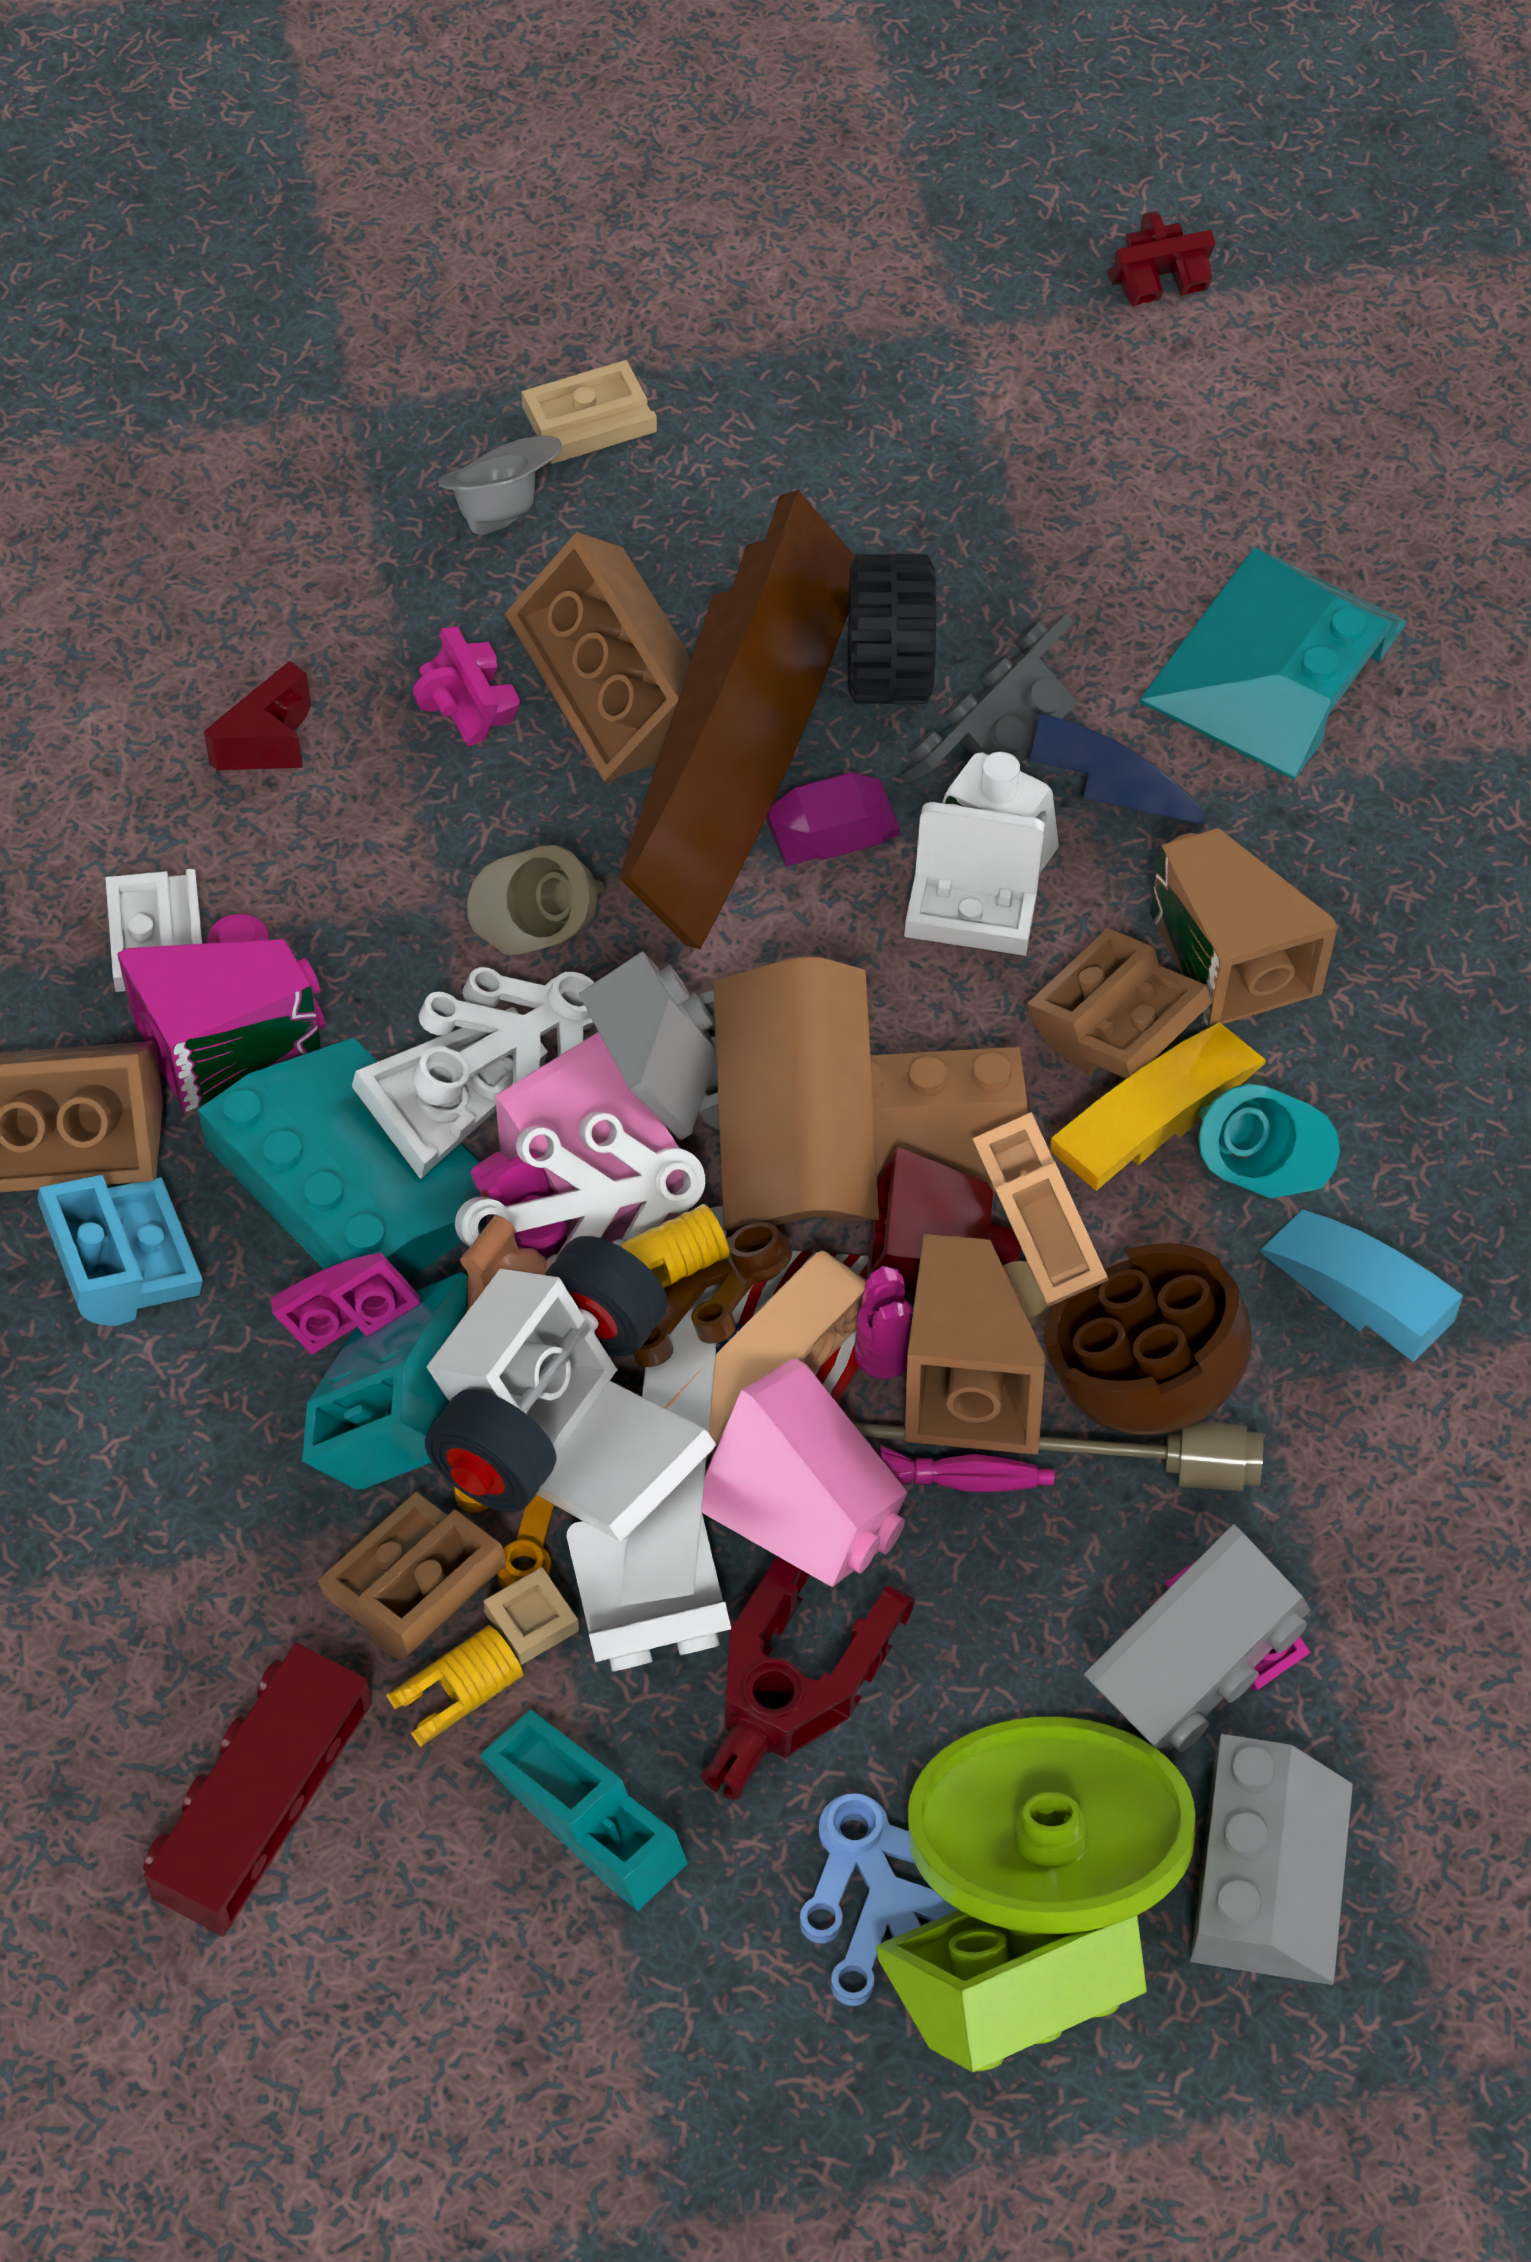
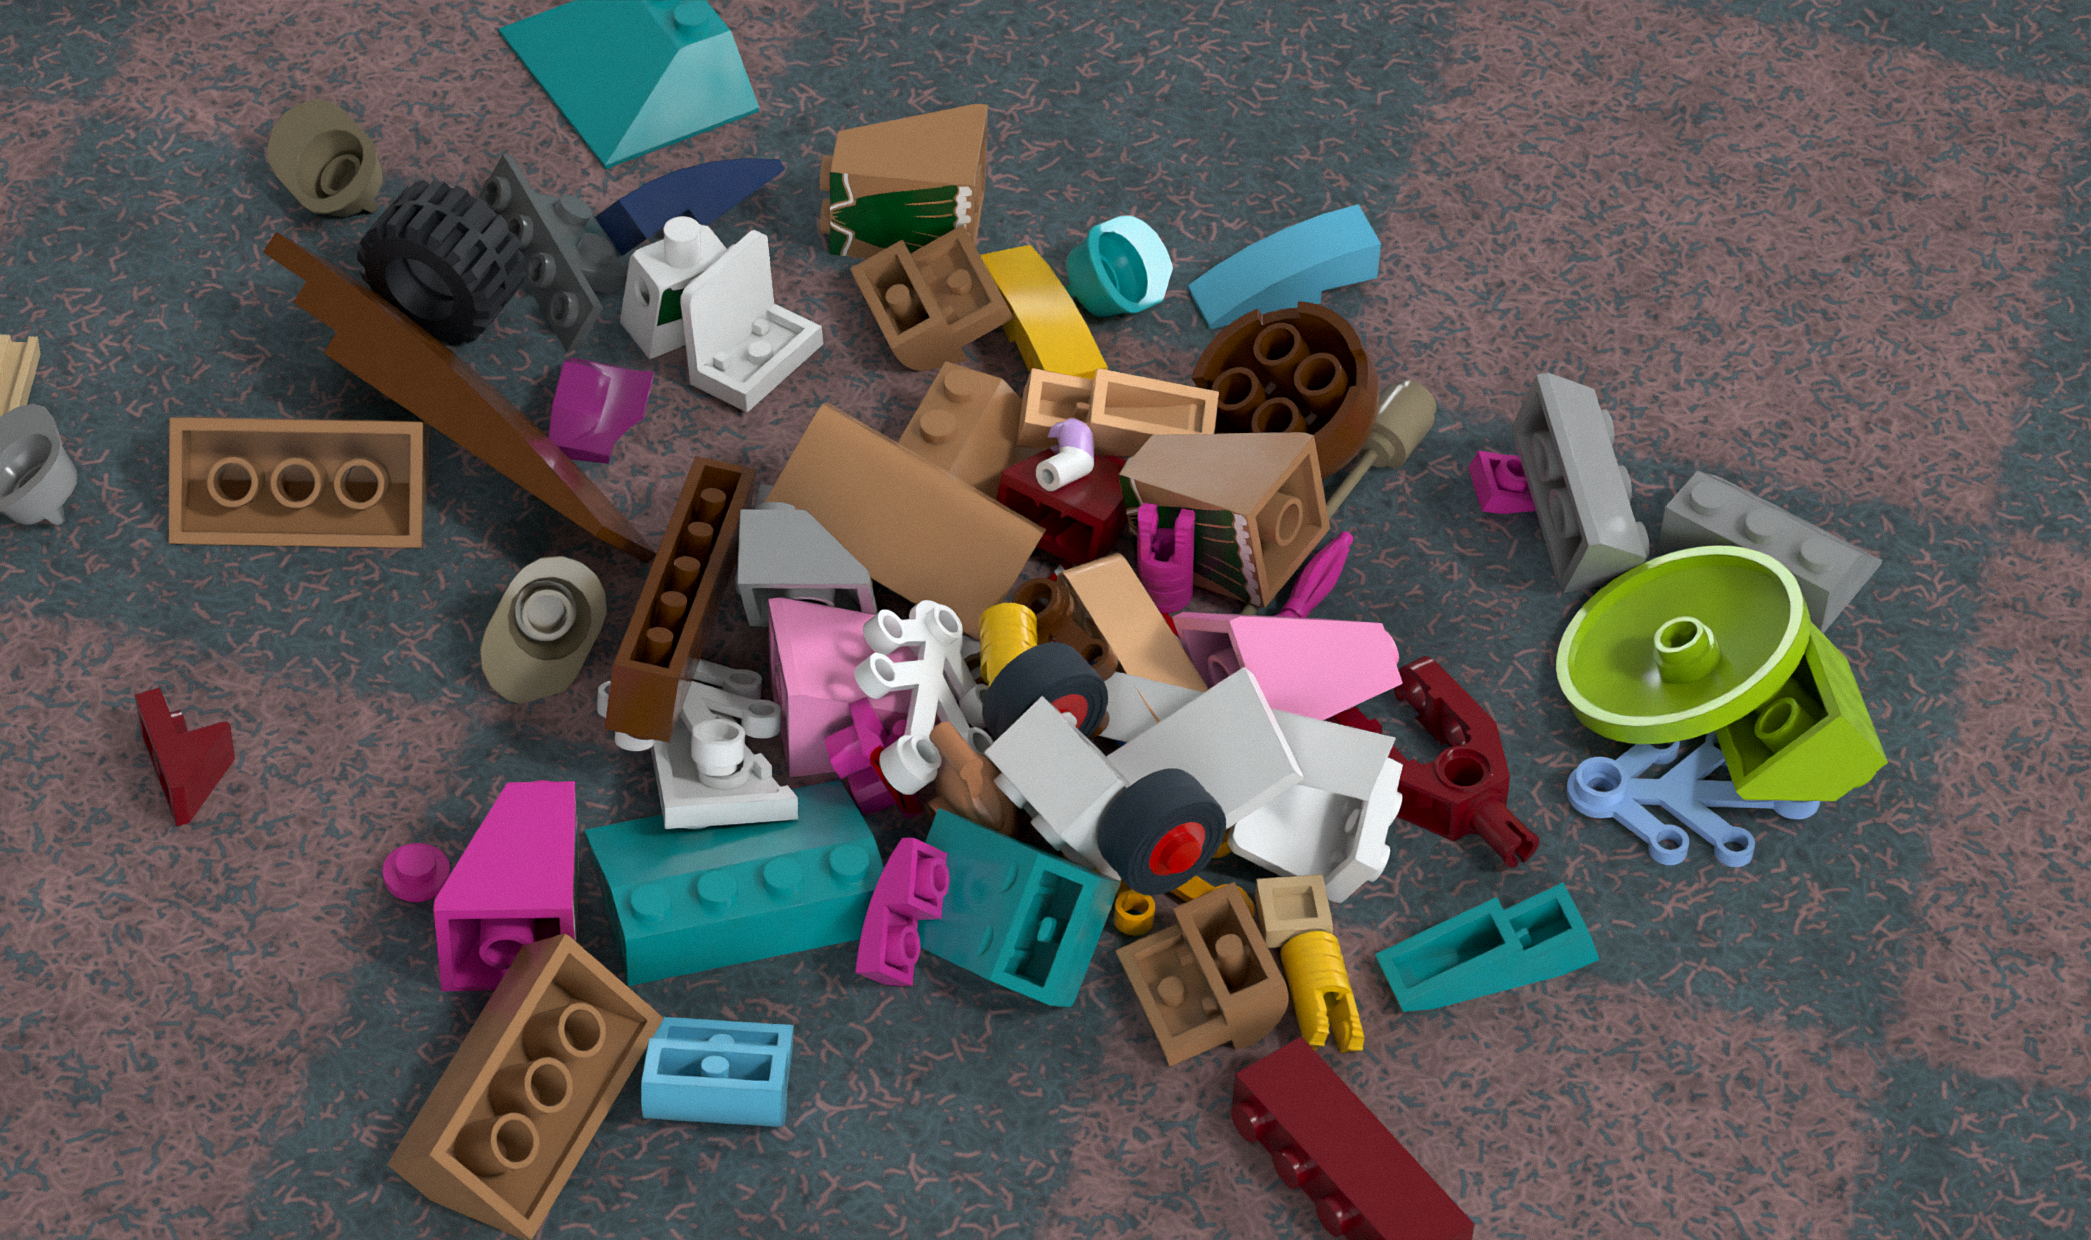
camera: 65 degrees left, 10 degrees down
(151, 912) = (357, 928): white plate -> none
(460, 688) = (247, 594): dark pink hips -> none
(538, 974) = (679, 601): none -> reddish brown brick
(953, 1194) = (1073, 455): none -> arm
(977, 504) = (325, 159): none -> dark tan piece

